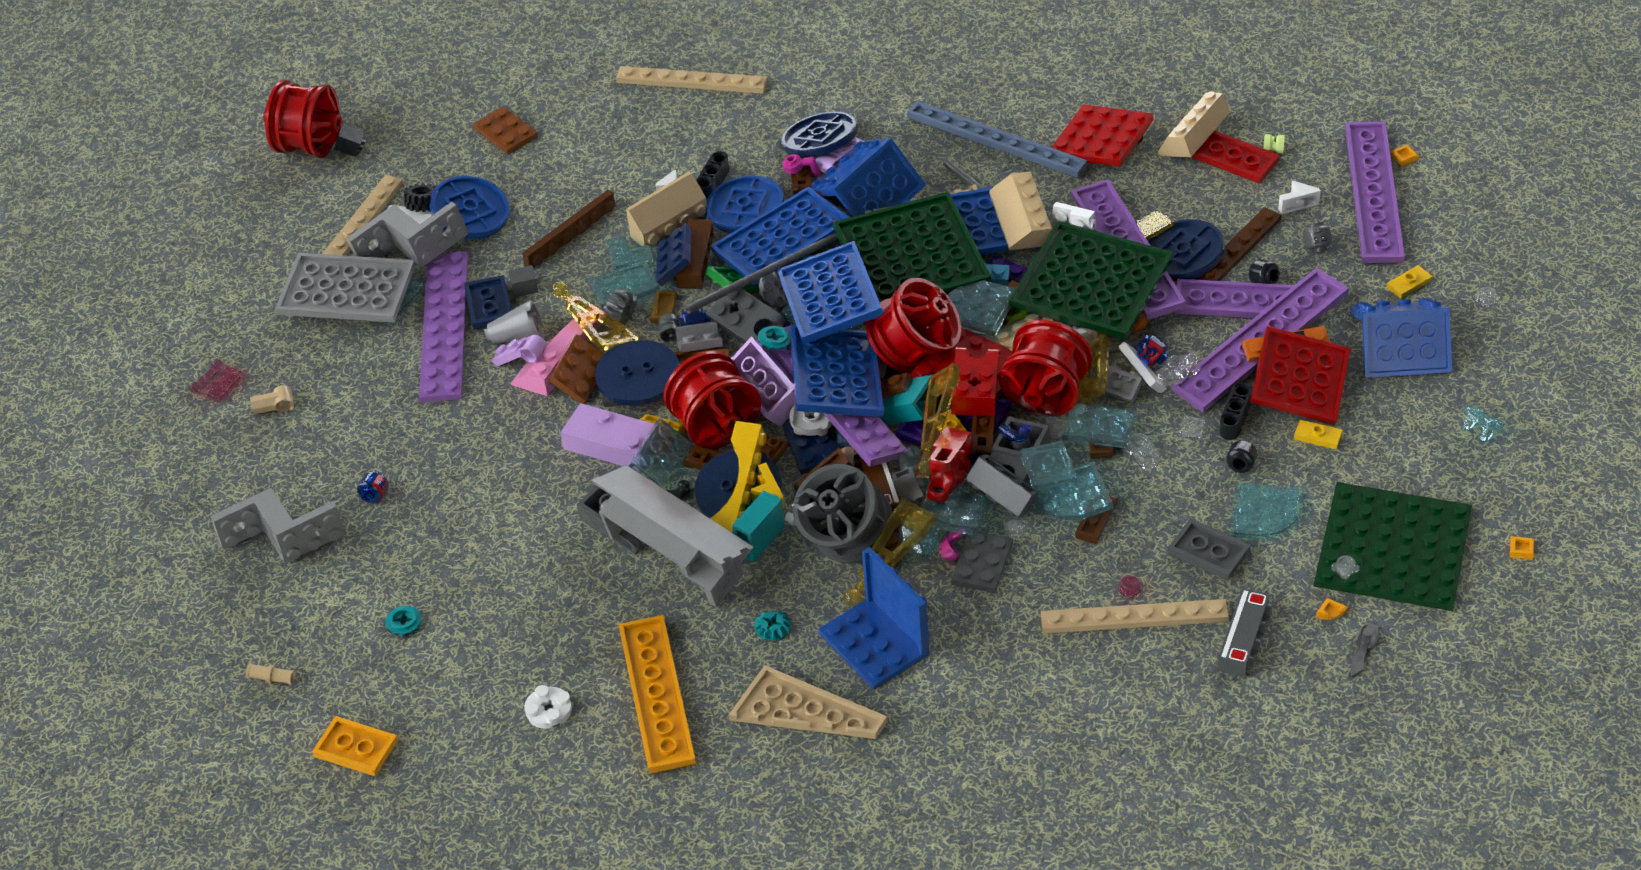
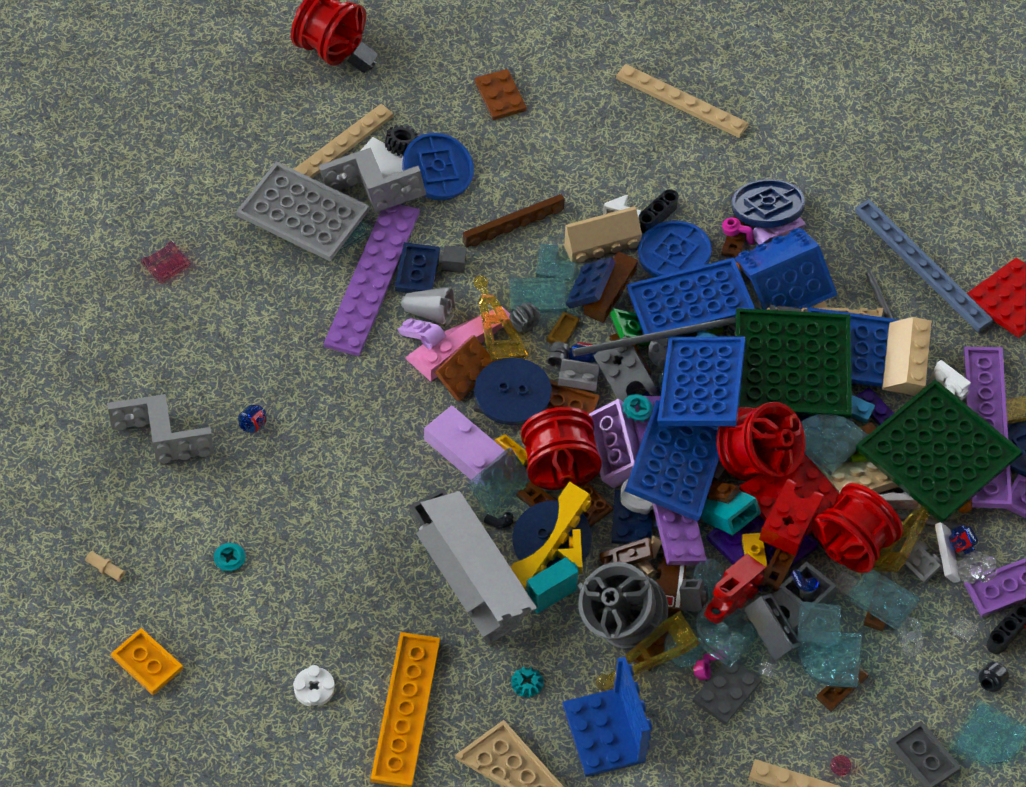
camera: 15 degrees right, 10 degrees up
(279, 400) = (207, 301): tan piece -> none
(940, 383) = (761, 512): clear yellow plate -> none

